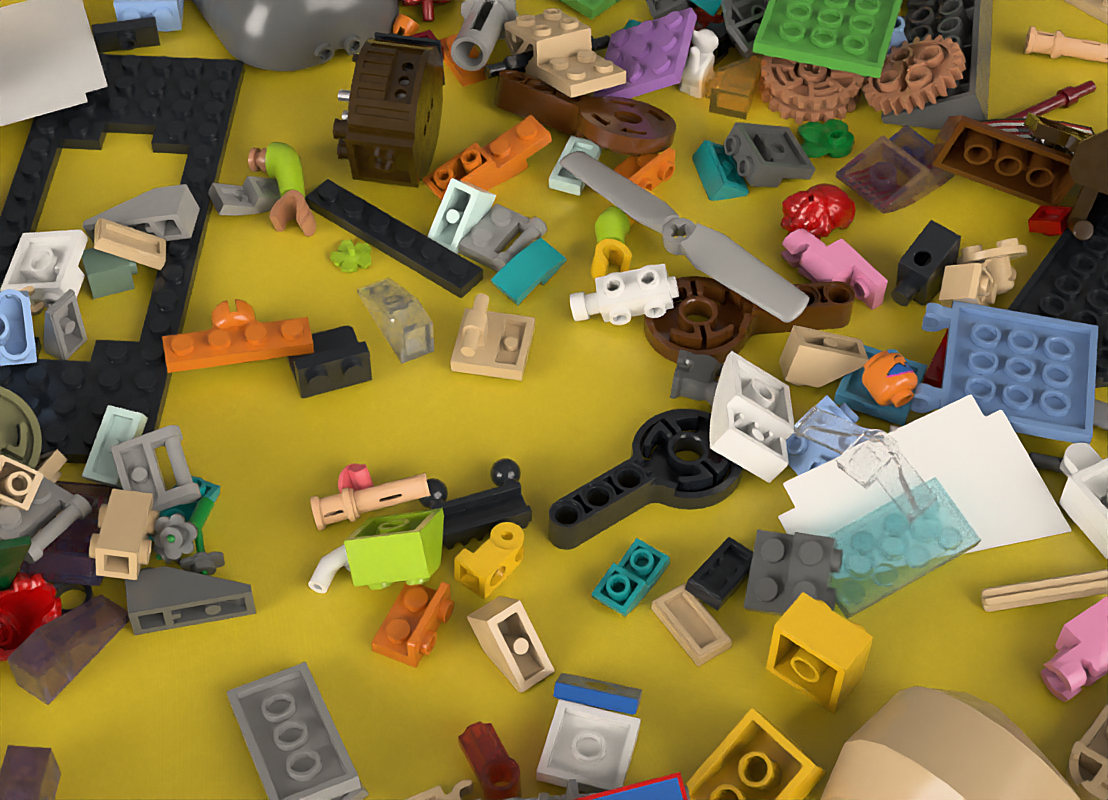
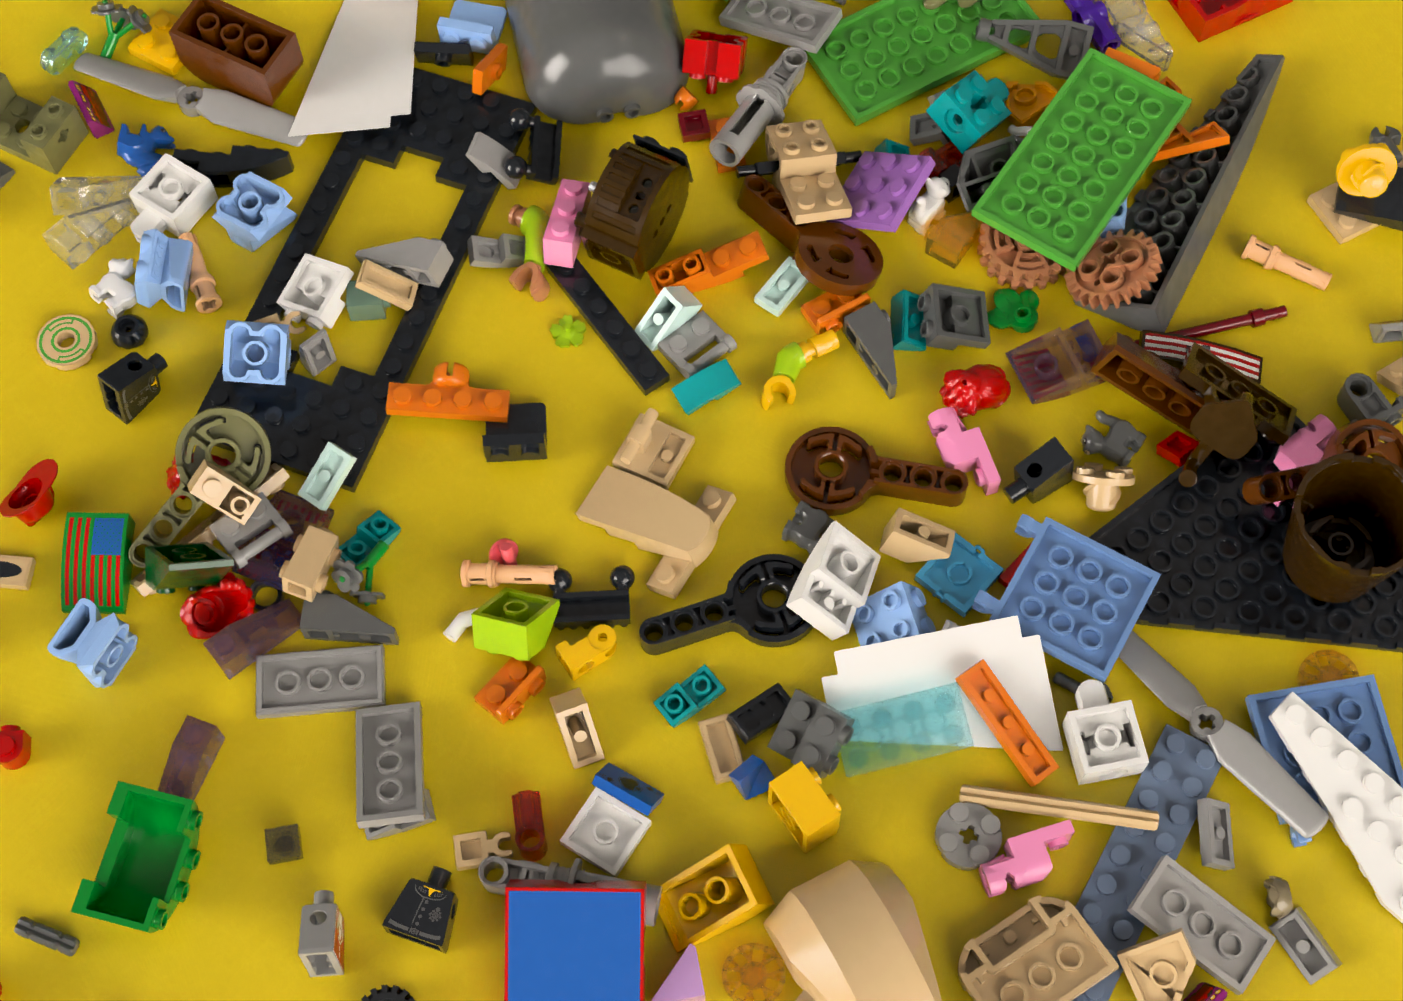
camera: 20 degrees right, 15 degrees up
(141, 471) = (340, 509): light grey plate -> none
(167, 676) = (320, 681): none -> light grey tile
(183, 35) = (489, 69): none -> orange plate
(212, 107) = (491, 157): none -> light grey slope
(267, 95) = (543, 148): none -> black gear
(318, 150) = (561, 236): none -> bright pink brick
(399, 318) = (583, 406): clear slope -> none
(524, 409) = (658, 523): none -> tan slope
(627, 295) = (777, 438): white brick -> none
(694, 194) = (872, 339): none -> dark grey slope
(702, 246) = (856, 409): light grey piece -> none
(743, 641) = (752, 777): none -> blue slope
(869, 457) = (909, 651): clear plate -> none
(889, 379) = (958, 580): orange head -> none
(967, 284) = (1067, 506): tan slope -> none
(987, 226) = (1116, 442): none -> dark grey animal
(1005, 509) = (1007, 723): none -> orange plate
(1012, 621) = (963, 817): none -> light grey plate

